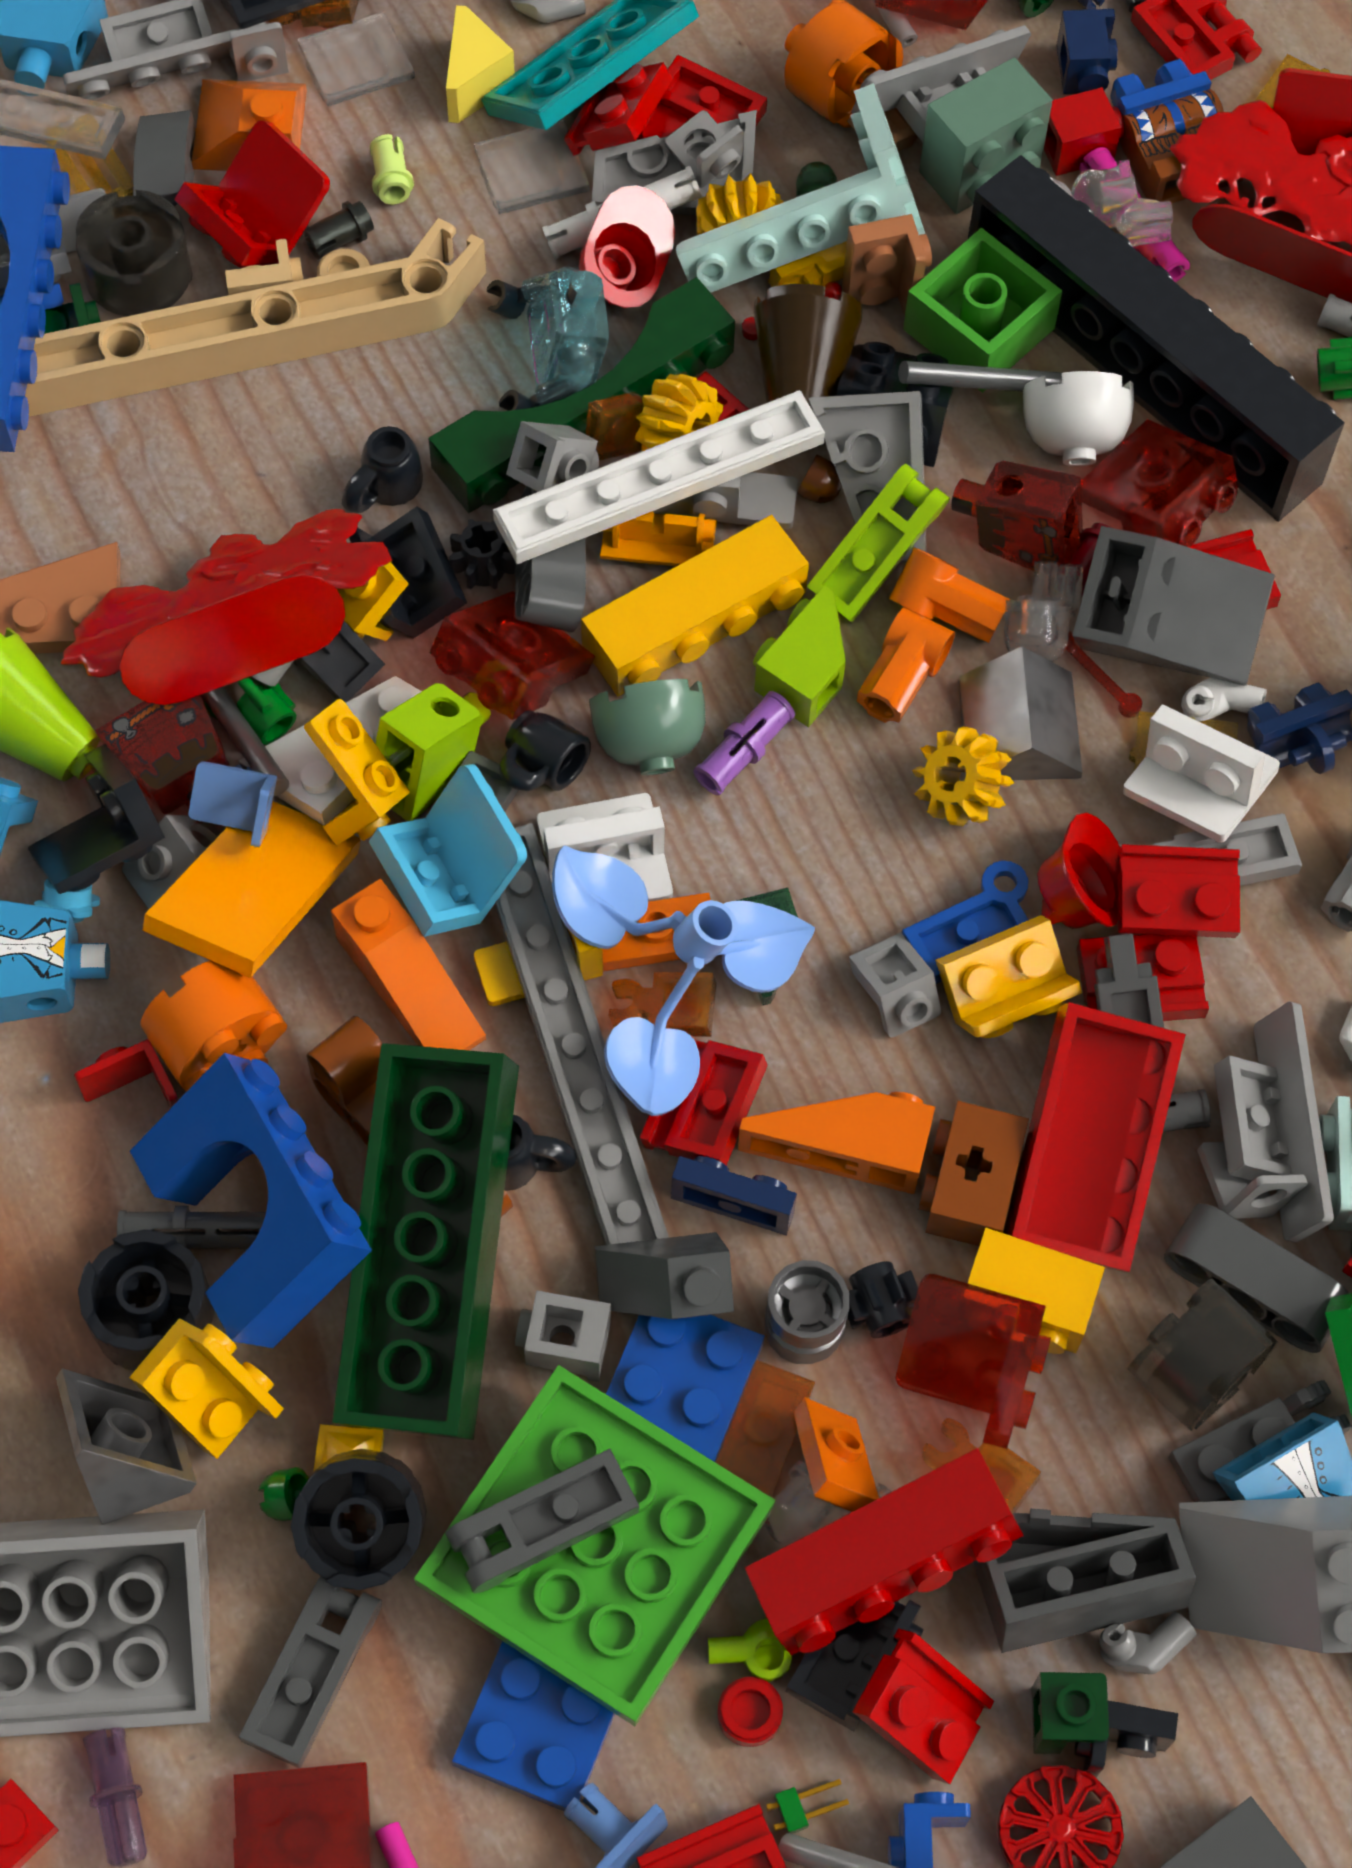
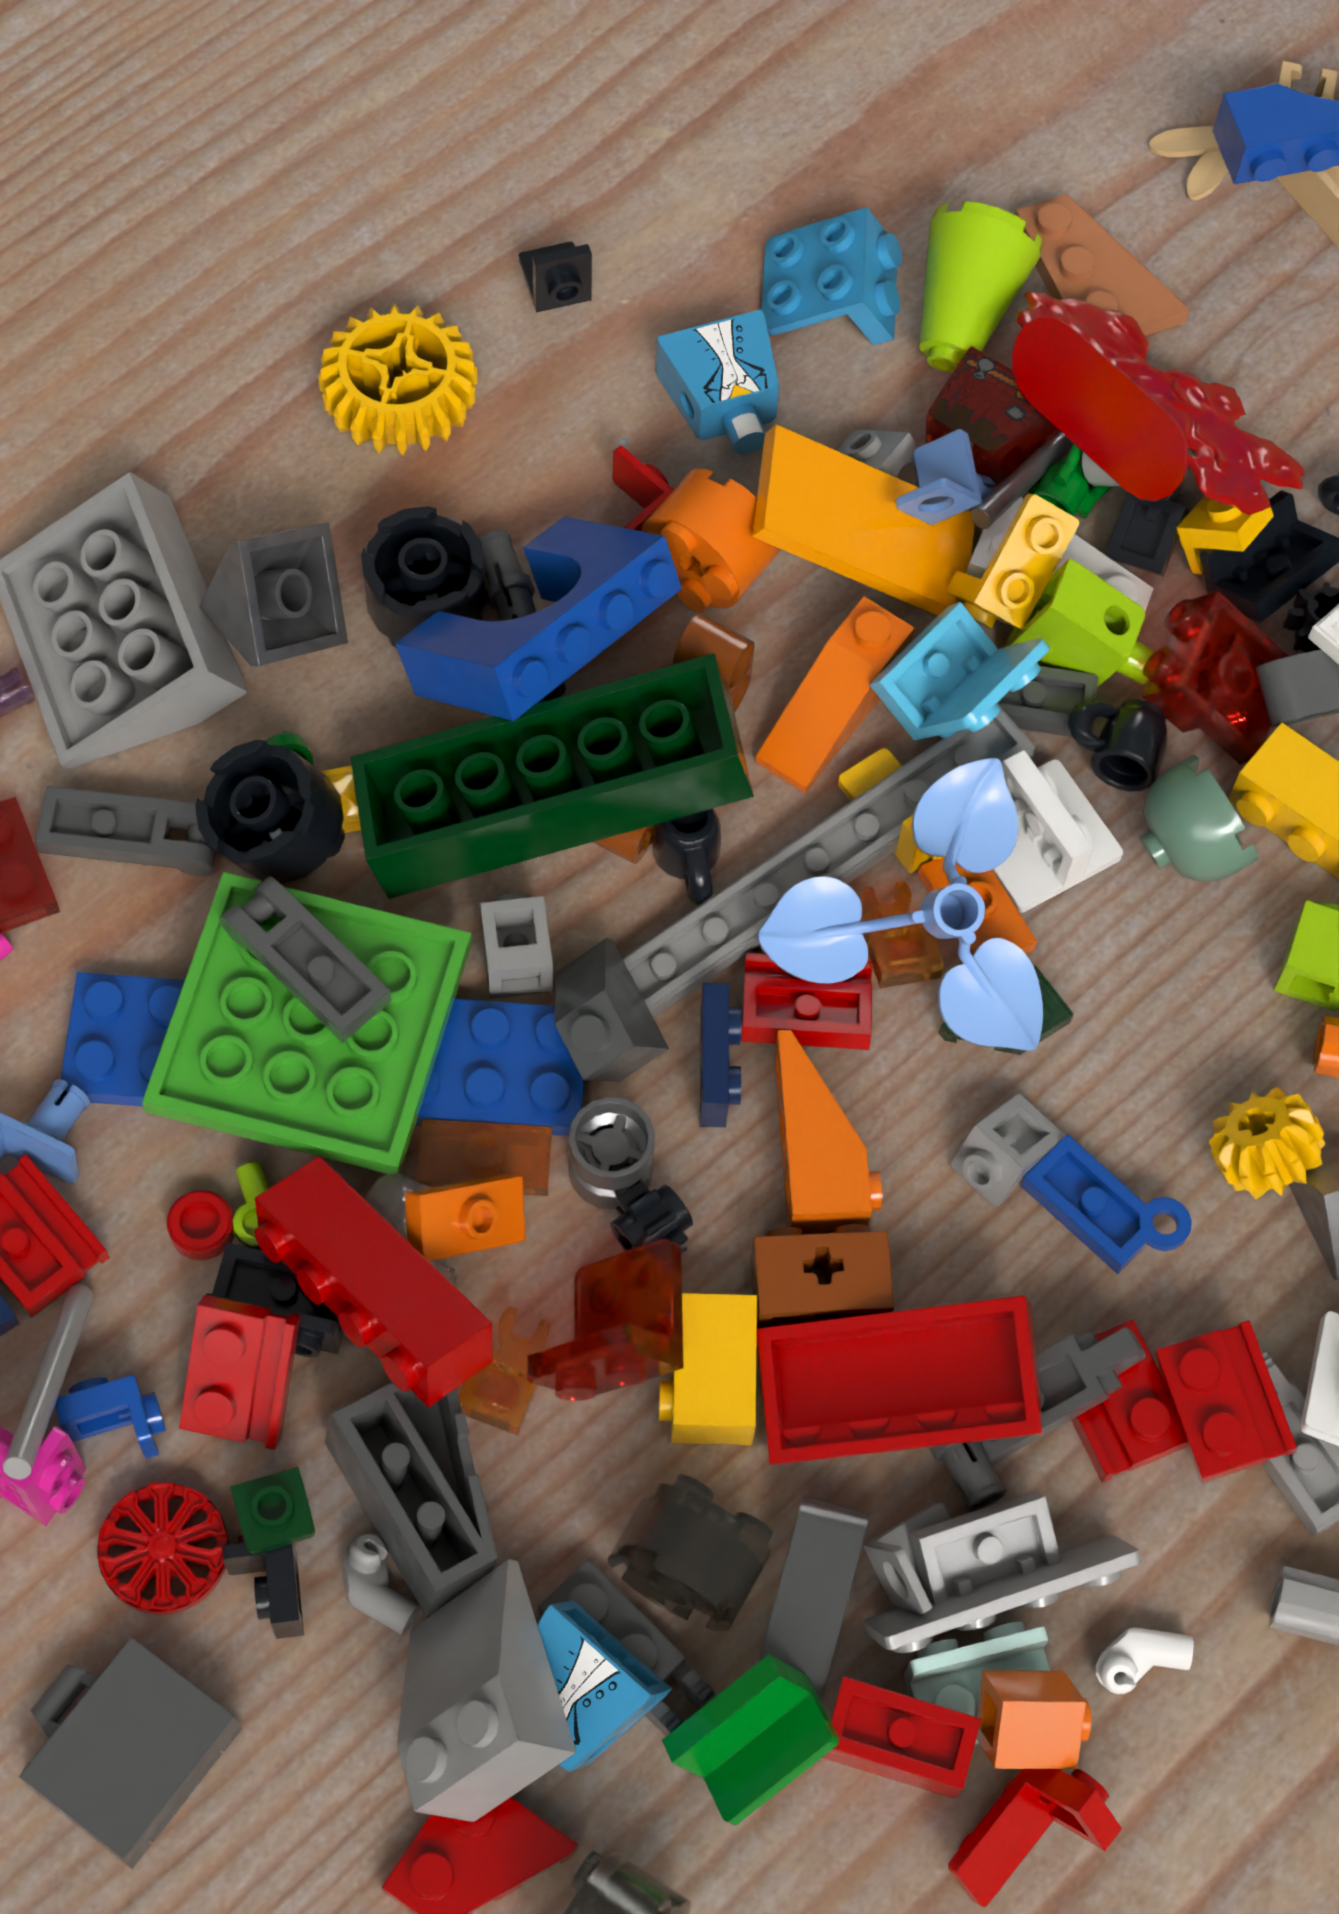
camera: 70 degrees right, 0 degrees up
(77, 903) = (801, 391): medium azure plate -> none
(112, 834) = (874, 398): black bracket -> none
(204, 1385) = (355, 646): yellow bracket -> none
(720, 766) = (1221, 927): medium lavender pin -> none
(791, 1809) = (115, 1291): piece -> none
(1006, 979) = (1053, 1253): yellow bracket -> none
(1082, 876) = (1206, 1292): red piece -> none

